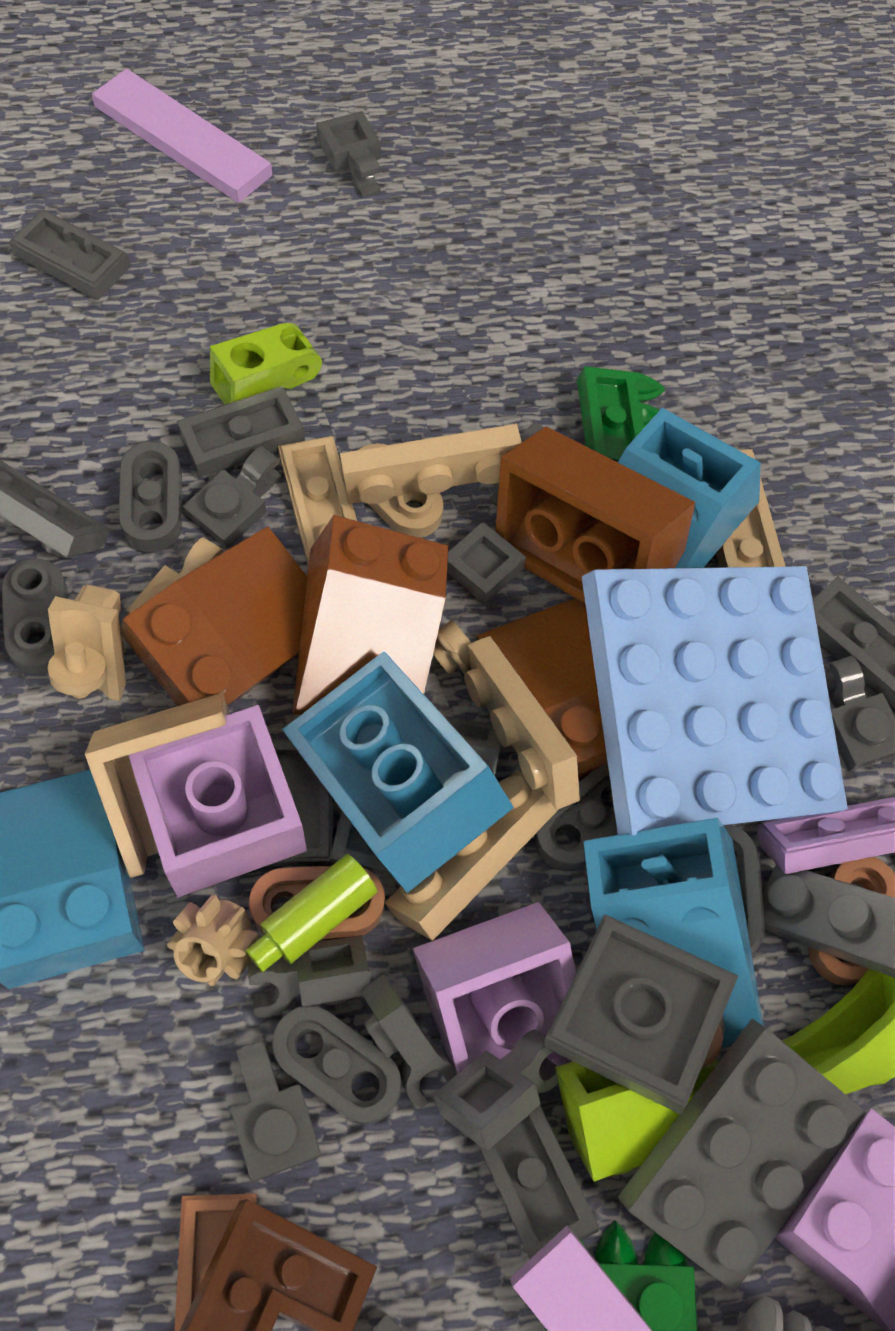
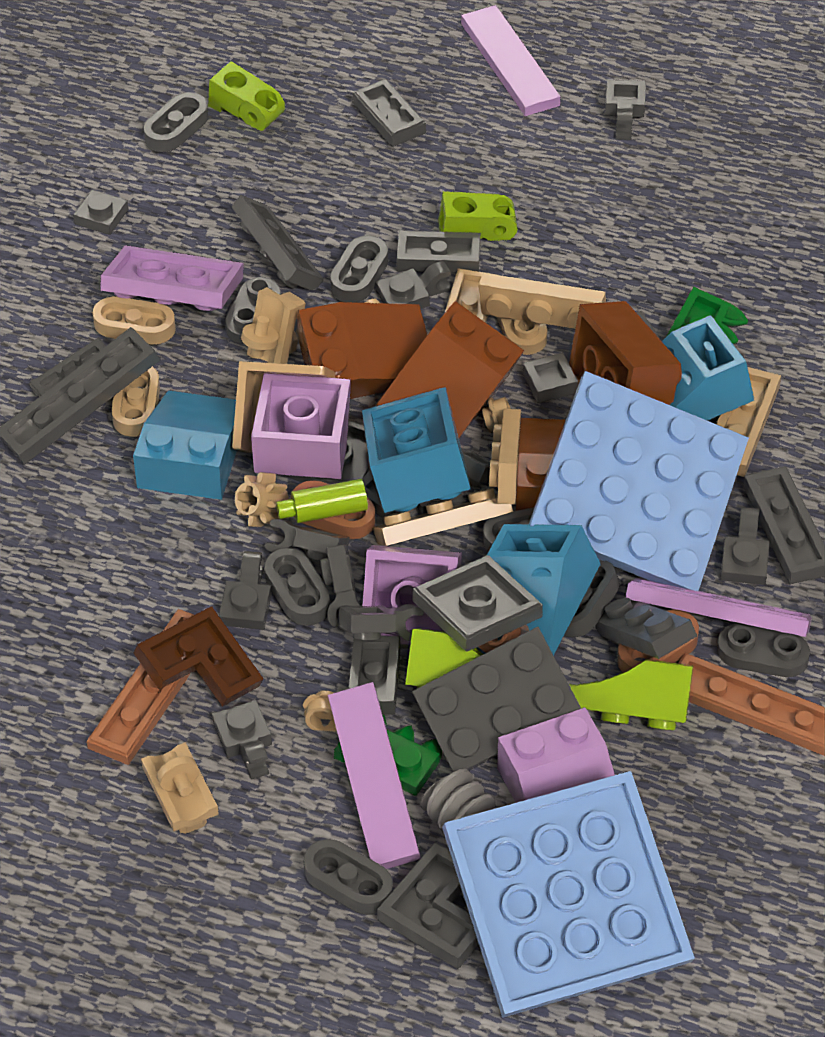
camera: 35 degrees right, 15 degrees down
(491, 1275) = (317, 708): none -> tan plate

